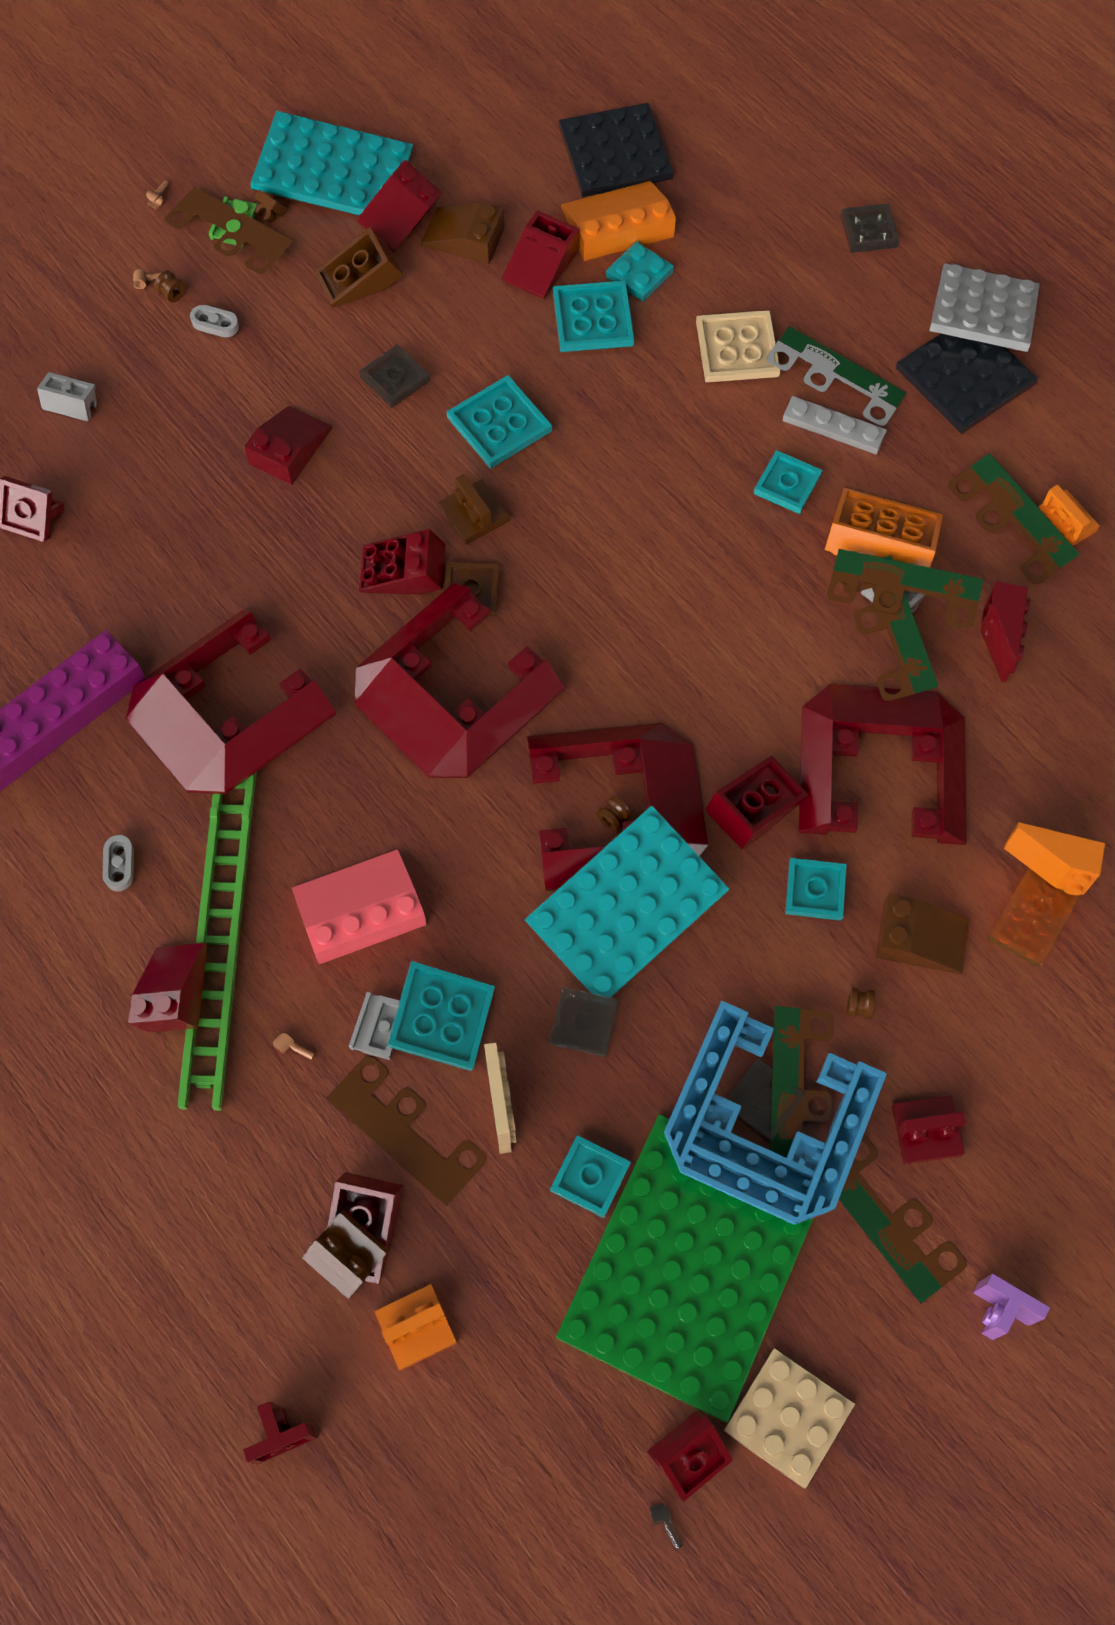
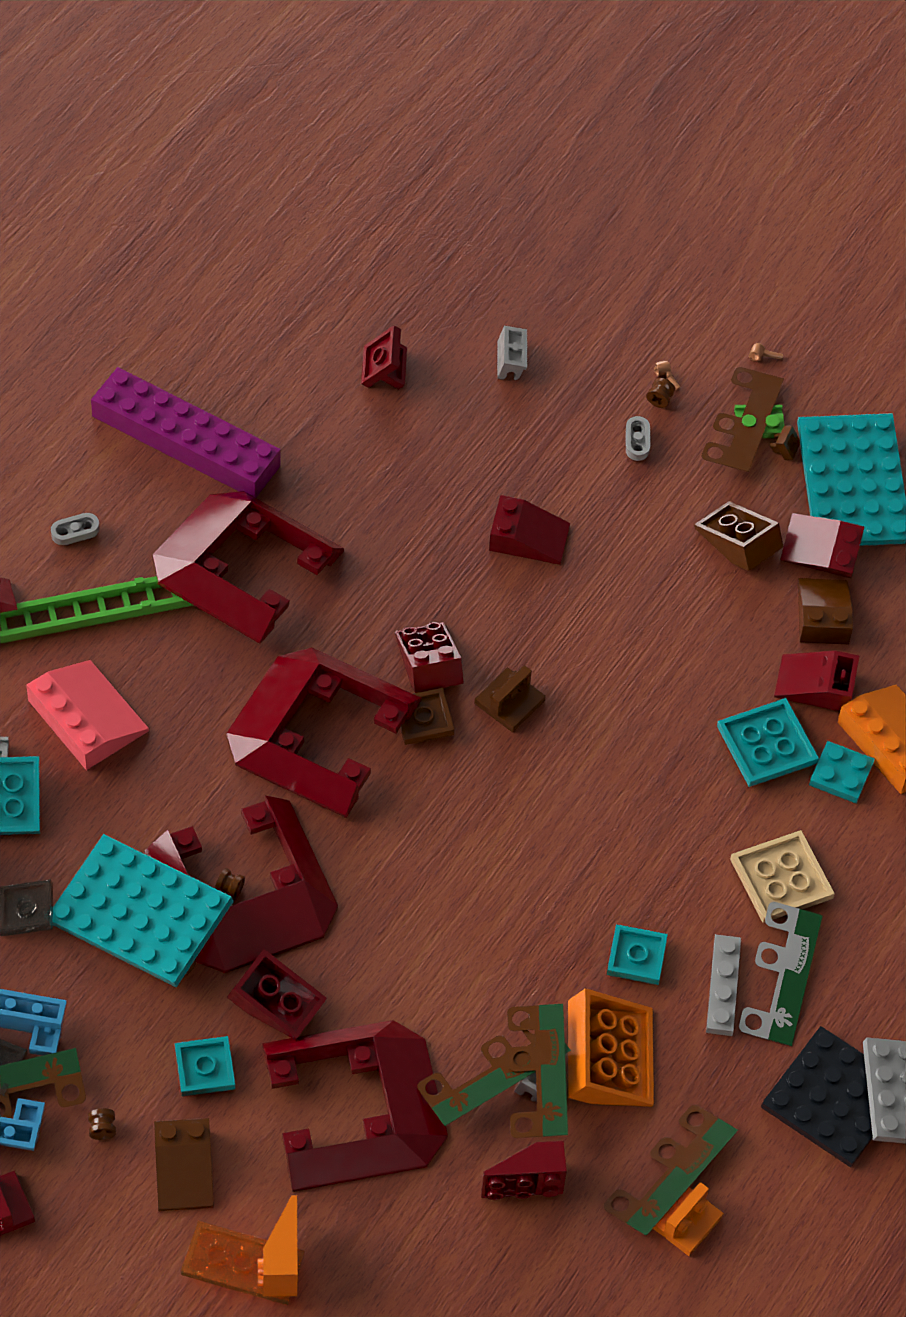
camera: 70 degrees right, 10 degrees down
(394, 376) = (632, 595): clear smoke plate -> none
(499, 421) = (614, 693): teal plate -> none

